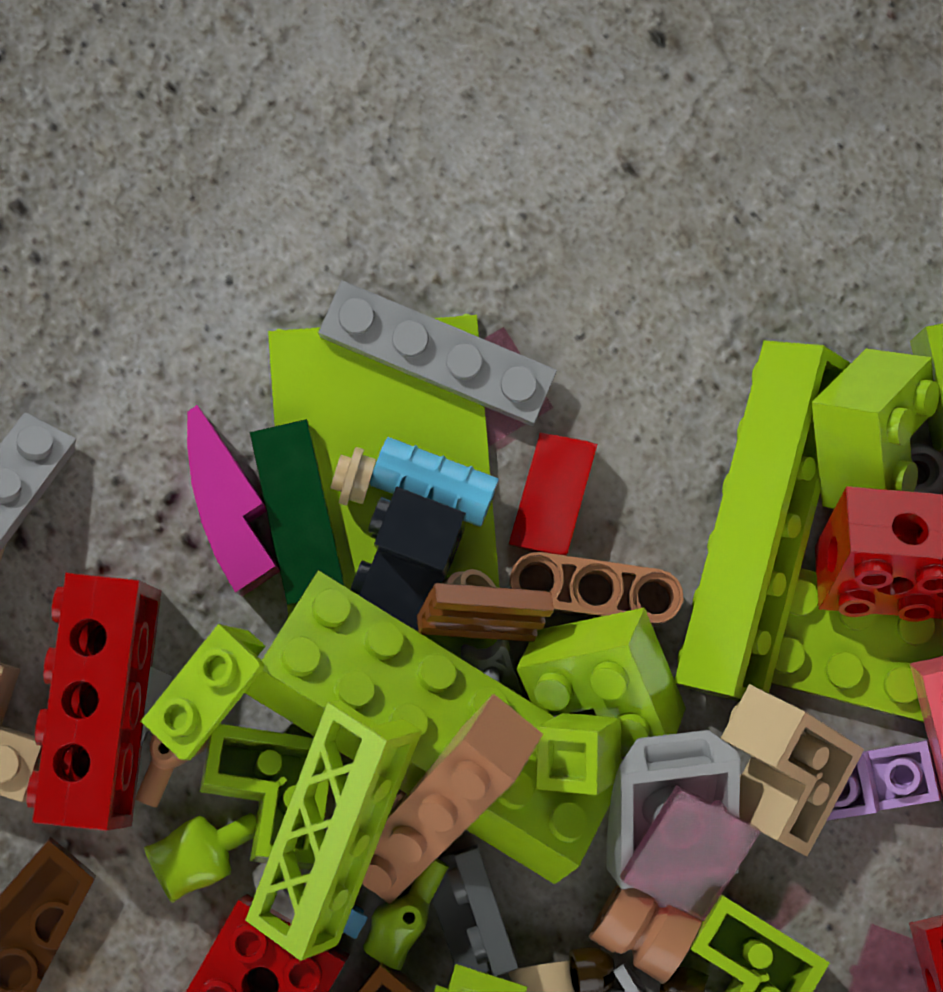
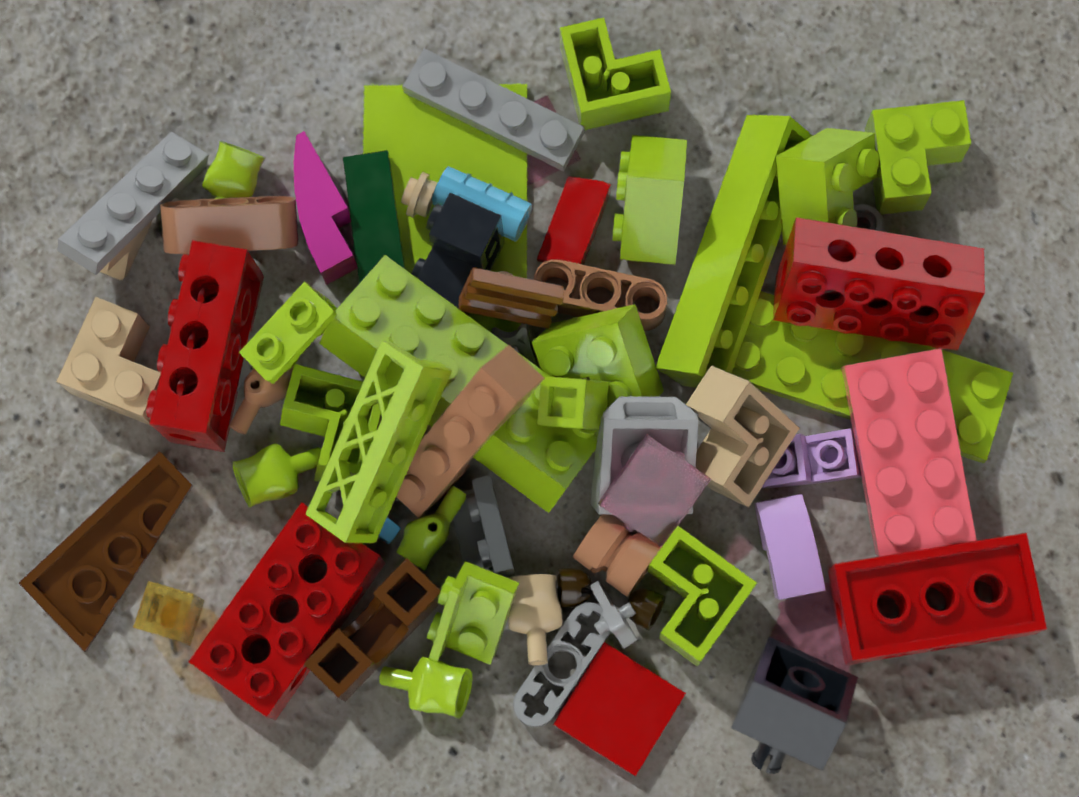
camera: 10 degrees right, 5 degrees down
(108, 472) = (233, 172): none -> lime piece
(111, 534) = (231, 222): none -> nougat beam
(581, 318) = (607, 87): none -> lime brick
(654, 458) = (652, 190): none -> lime brick
(862, 899) = (789, 546): none -> lavender slope

